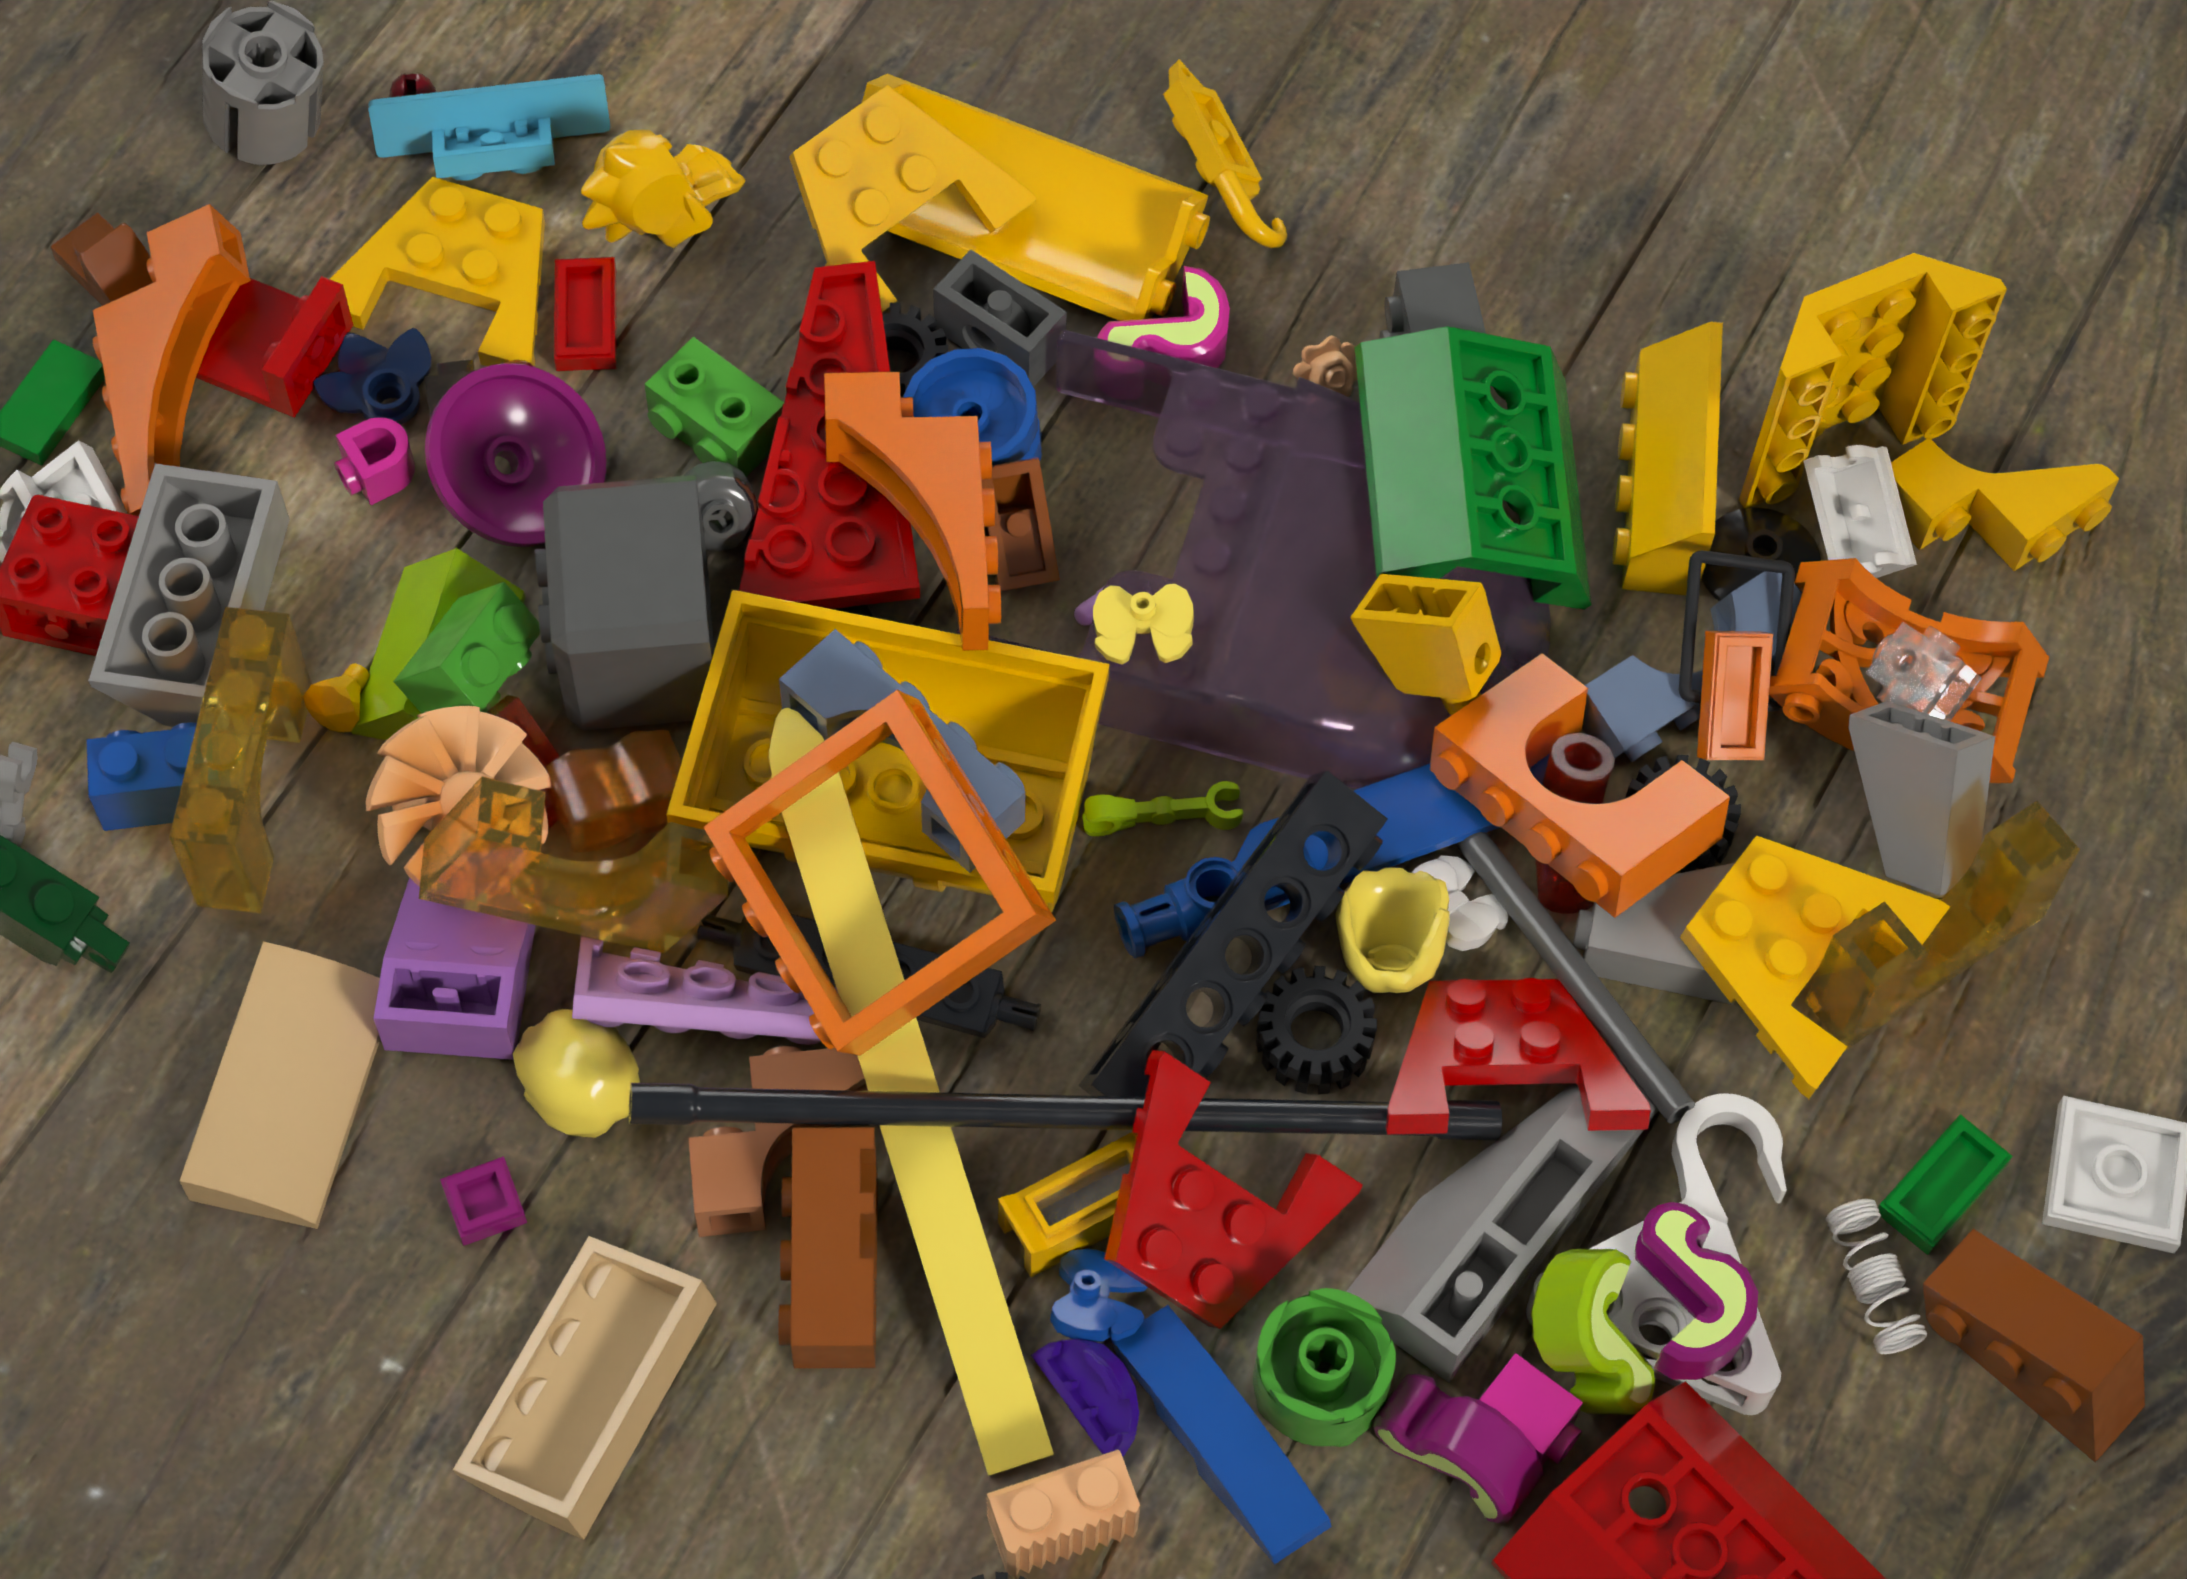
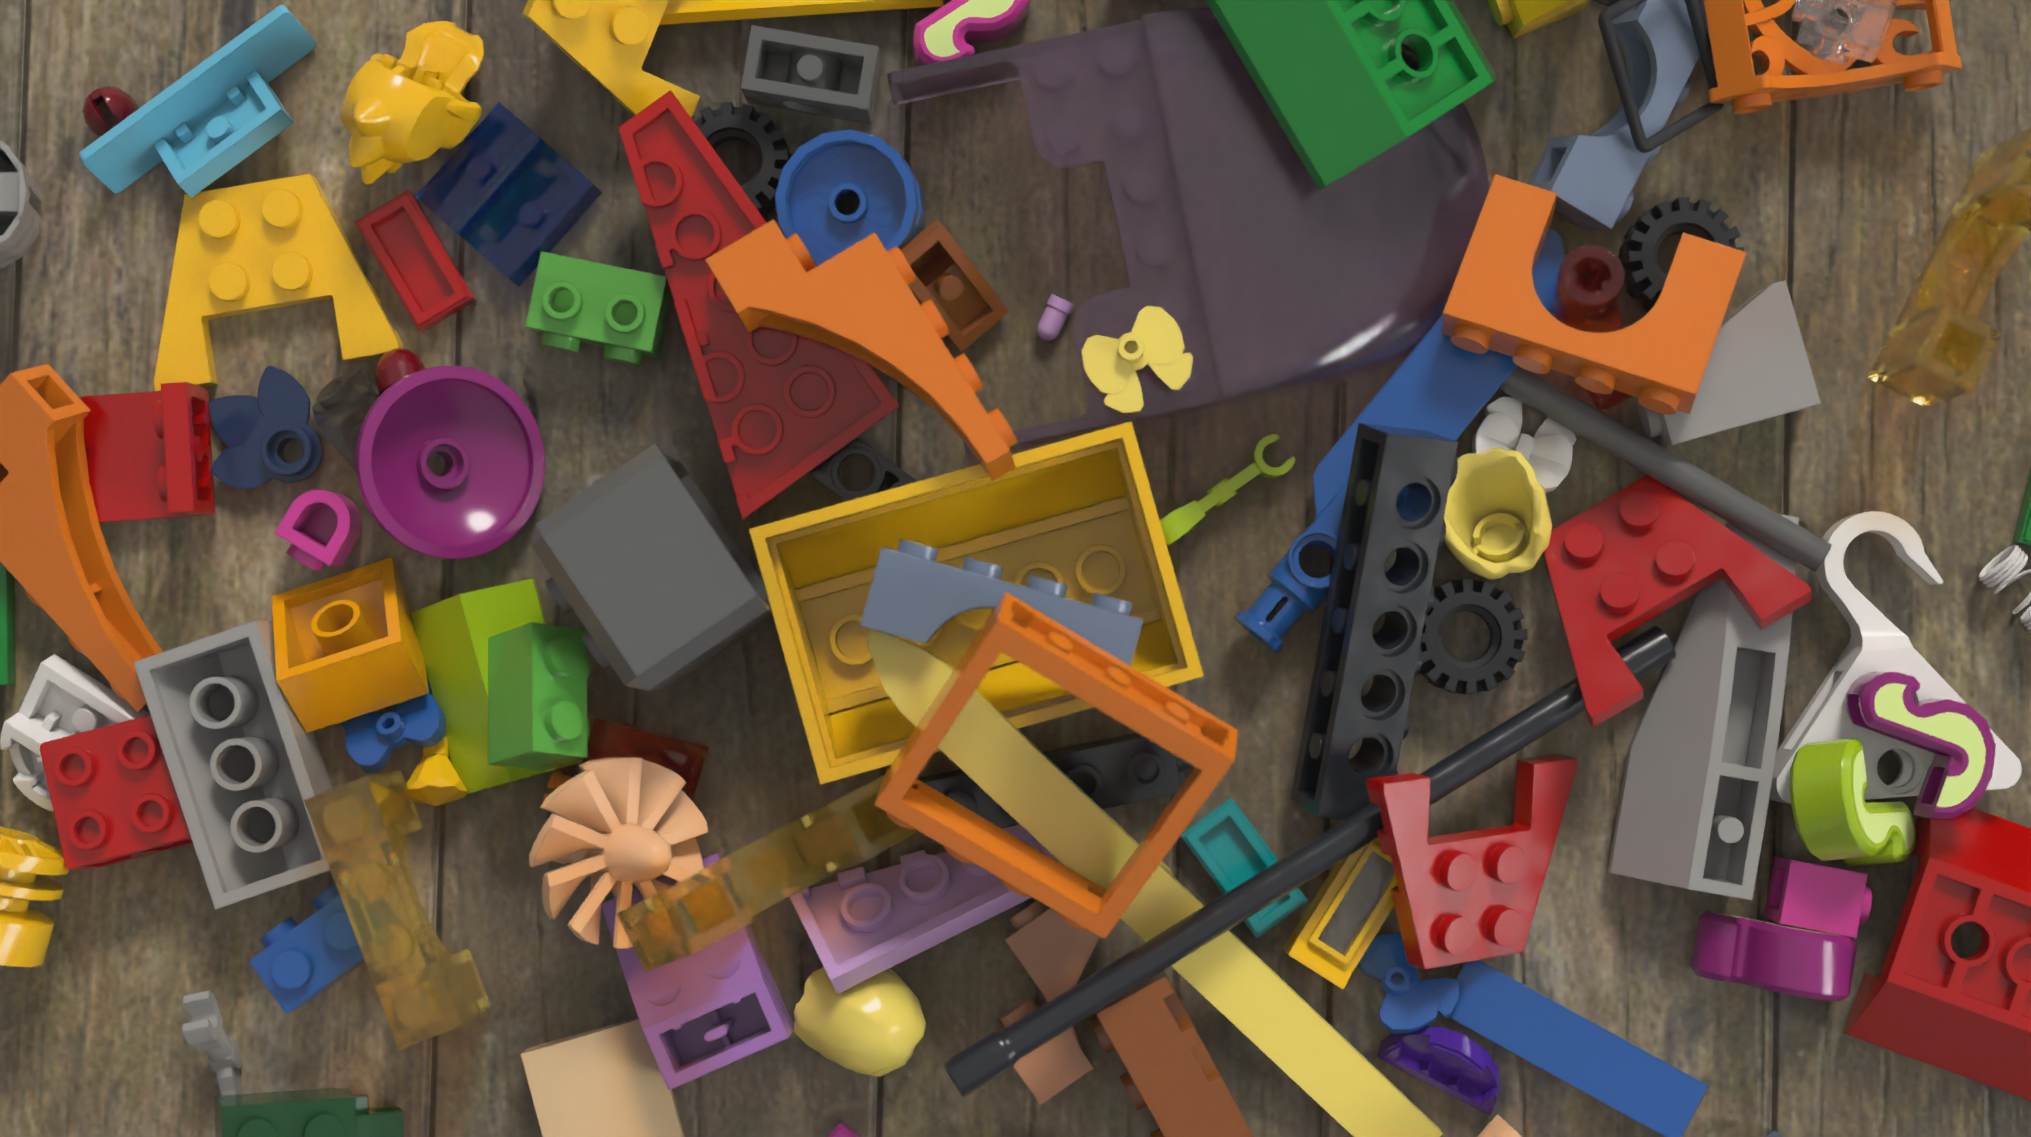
camera: 20 degrees left, 25 degrees up
(334, 561) = (347, 646): none -> light orange slope
(354, 642) = (374, 736): none -> blue piece
(614, 790) = (742, 744): clear orange brick -> none
(694, 293) = (508, 194): none -> clear blue slope
(725, 504) = (662, 409): dark grey head -> none
(1002, 1157) = (1234, 853): none -> teal tile
(1316, 1405) = (1661, 978): bright green brick -> none
(1430, 636) = (1420, 233): yellow torso -> none
(1734, 695) = (1688, 125): orange tile -> none
(1768, 935) = (1830, 341): yellow wing -> none
(1923, 792) = (1900, 136): light grey slope -> none

